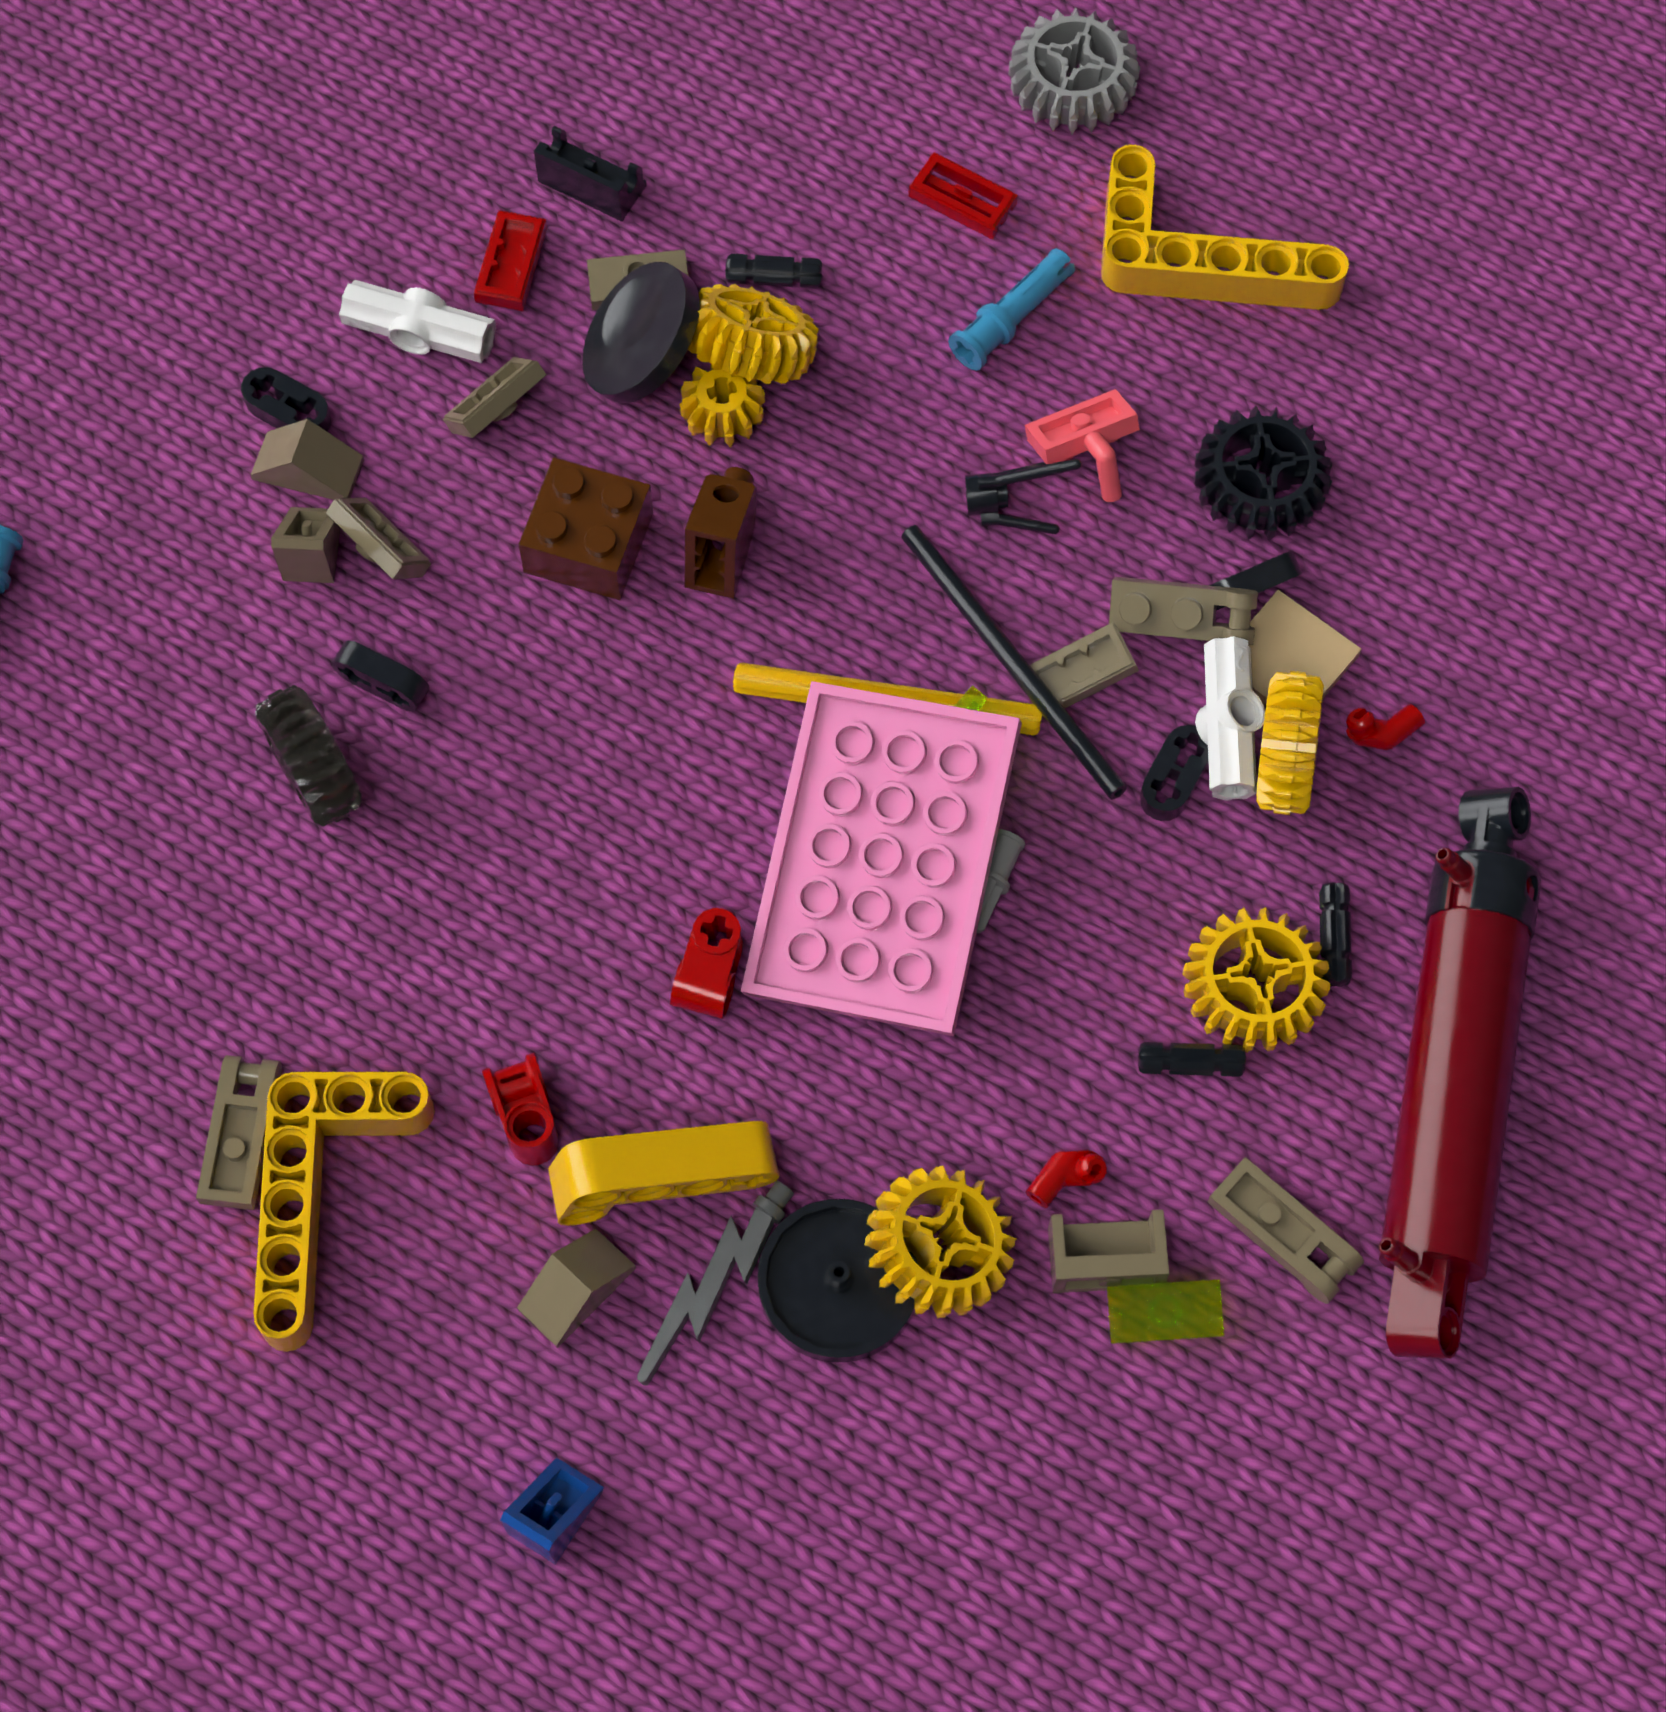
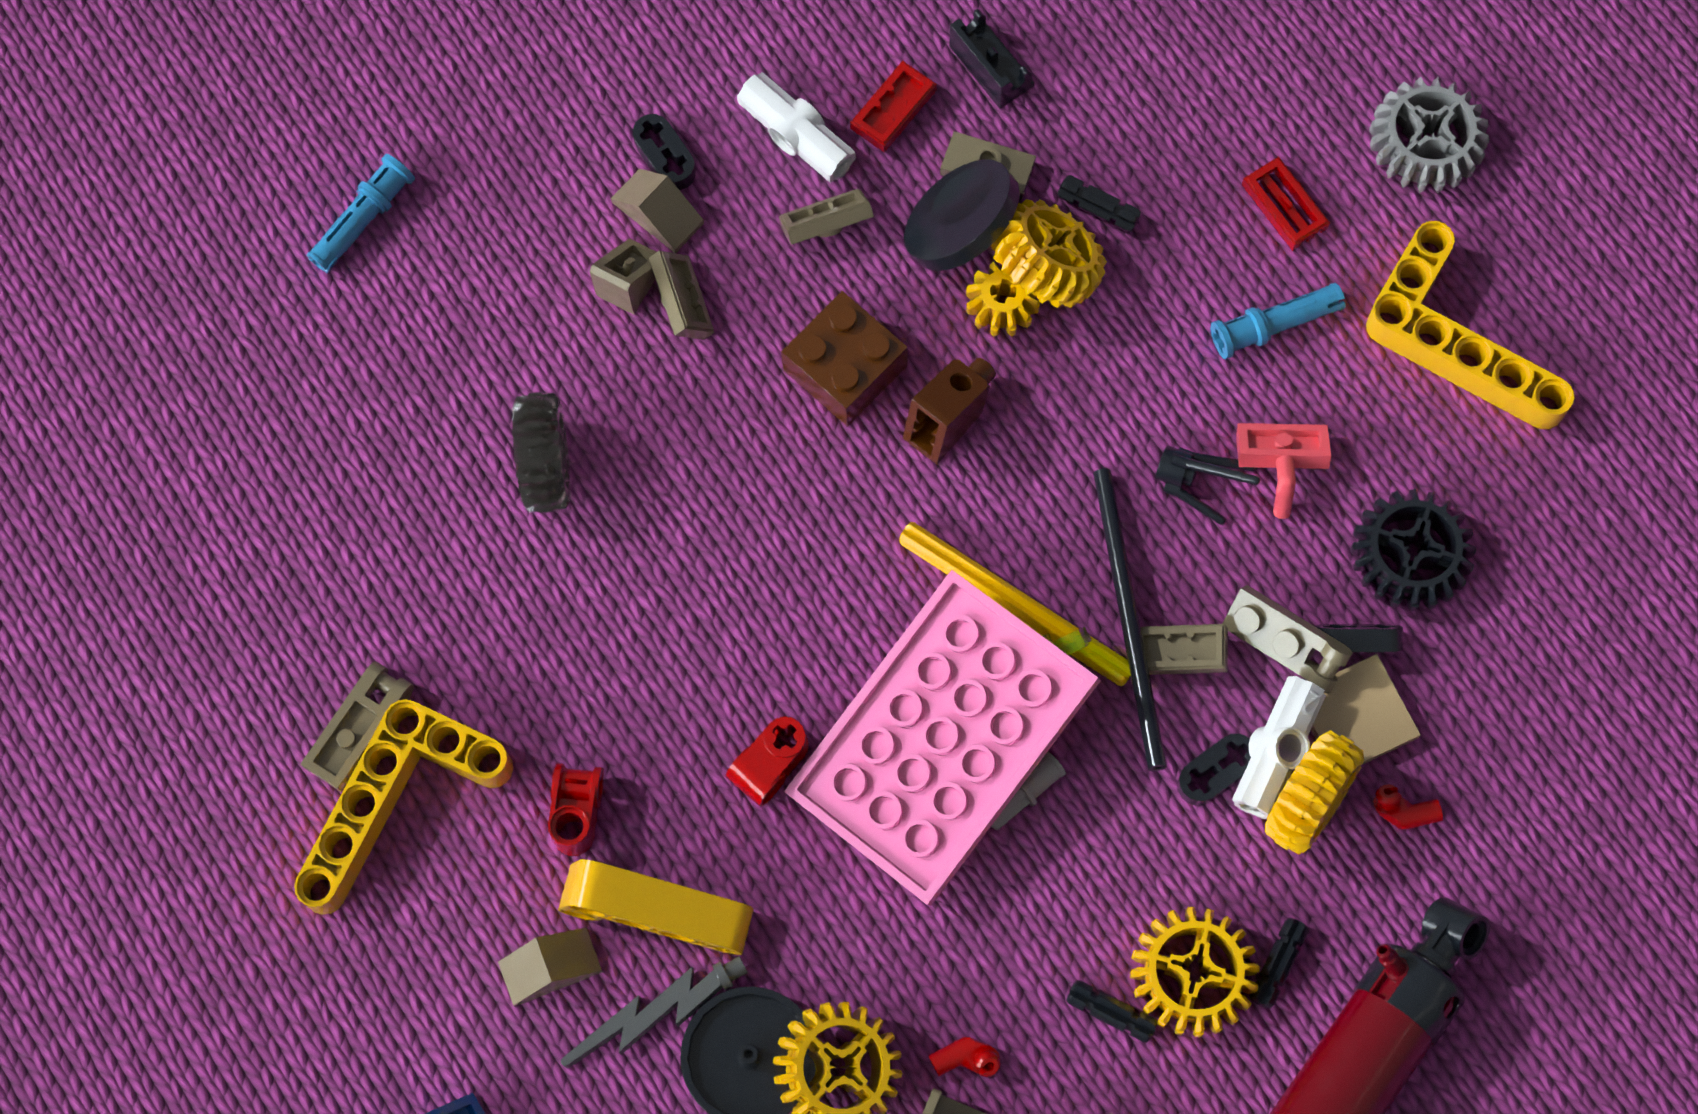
camera: 30 degrees right, 5 degrees up
(380, 675) = (630, 408): black beam -> none

